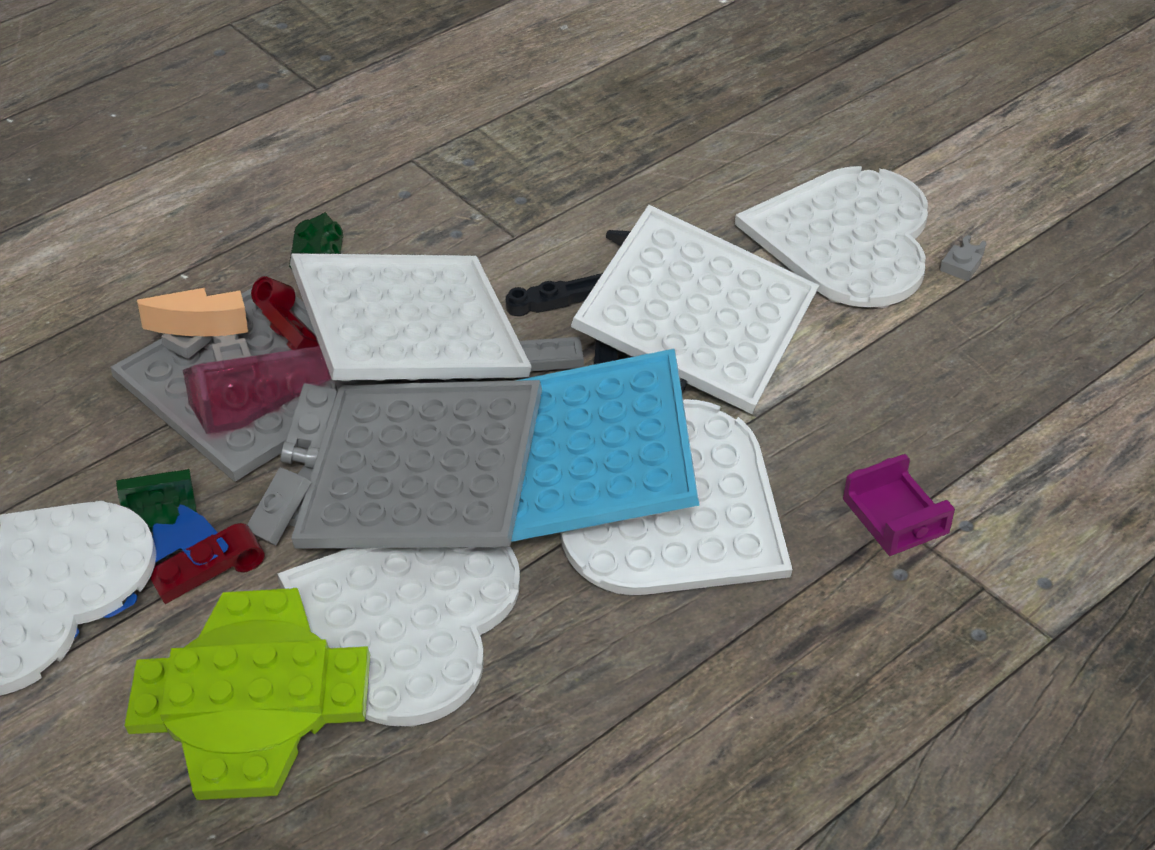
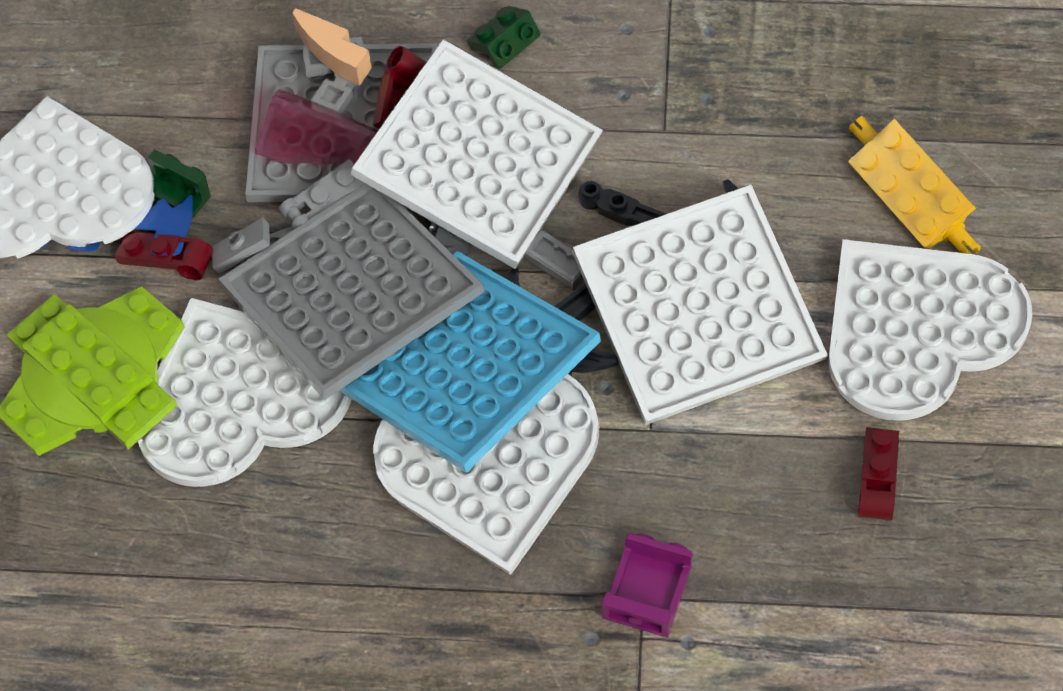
camera: 50 degrees right, 15 degrees up
(736, 158) = (912, 186): none -> yellow plate
(963, 260) = (987, 423): light grey plate -> none
(963, 340) = (879, 474): none -> dark red plate

